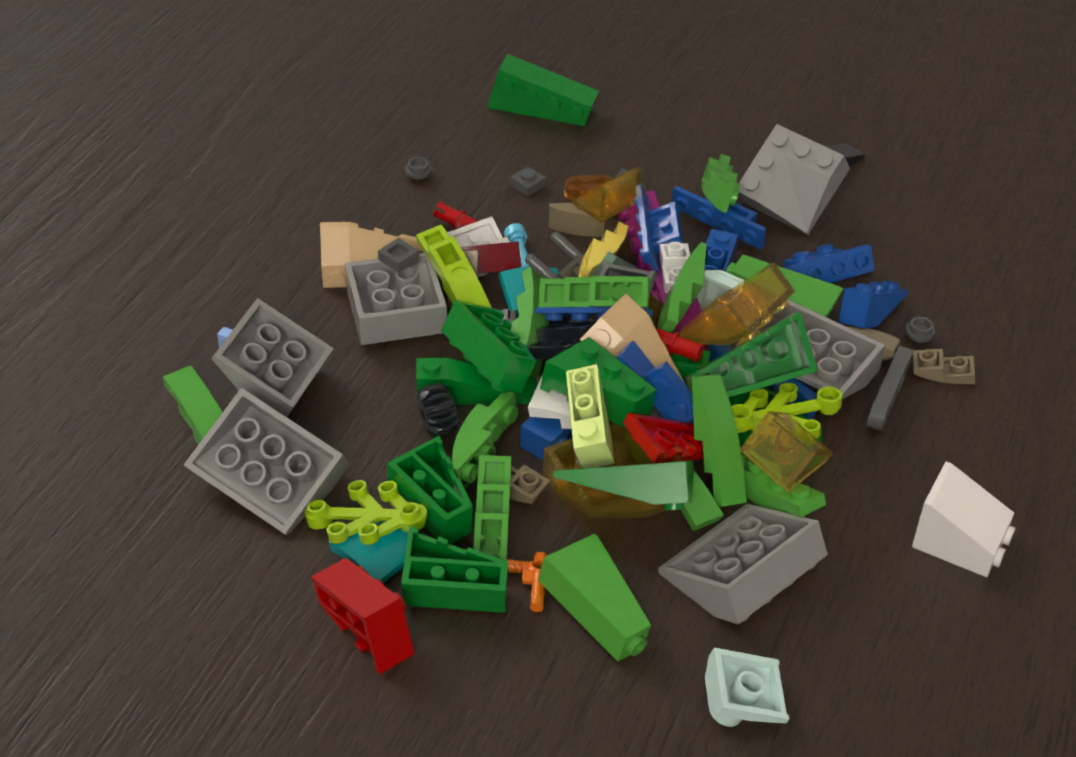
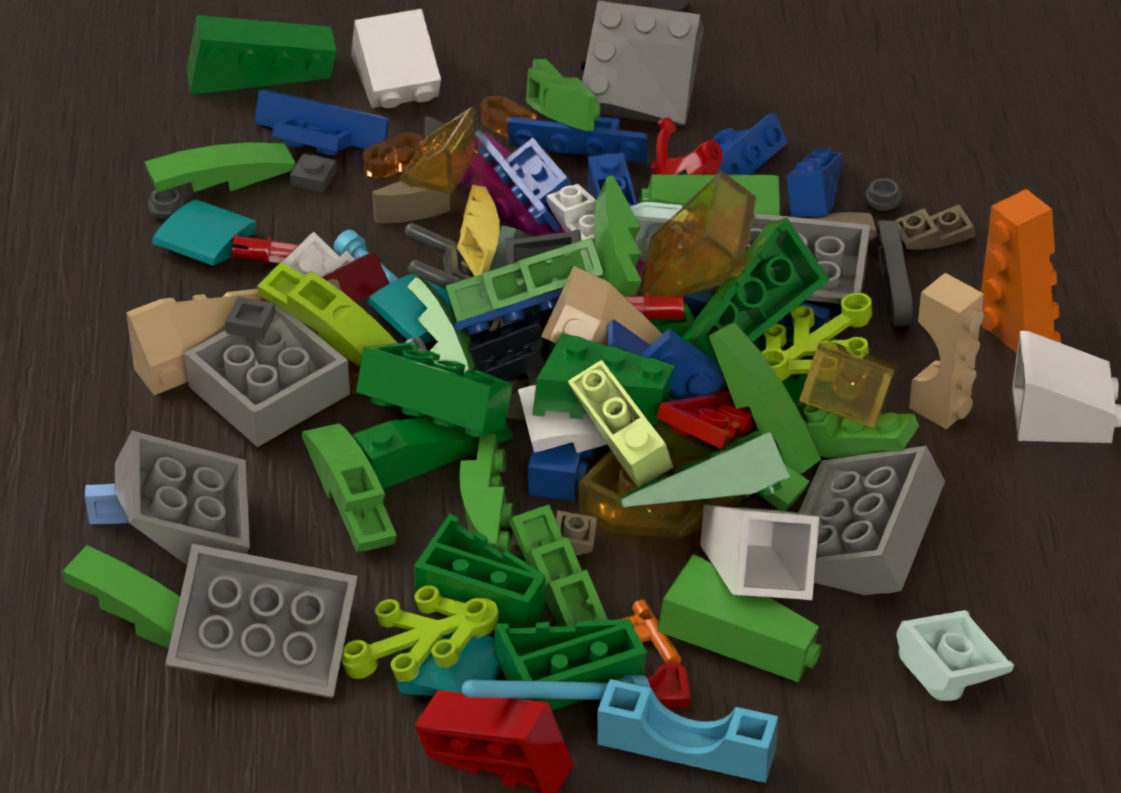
camera: 25 degrees left, 0 degrees up
(395, 394) = (352, 484): none -> bright green slope
(425, 191) = (203, 232): none -> teal slope
(437, 410) = (416, 486): black gear -> none
(477, 157) = (229, 163): none -> bright green slope
(483, 615) = (543, 689): none -> medium azure piece
(518, 625) = (671, 685): none -> red tile
(530, 688) = (639, 723): none -> medium azure arch
(550, 150) = (318, 123): none -> blue bracket
(628, 124) = (395, 59): none -> white slope
(642, 551) = (761, 550): none -> white slope
(683, 180) = (498, 109): none -> clear orange beam
(789, 258) = (702, 161): none -> red helmet
(884, 433) = (953, 319): none -> tan arch
(974, 416) = (1019, 270): none -> orange wedge

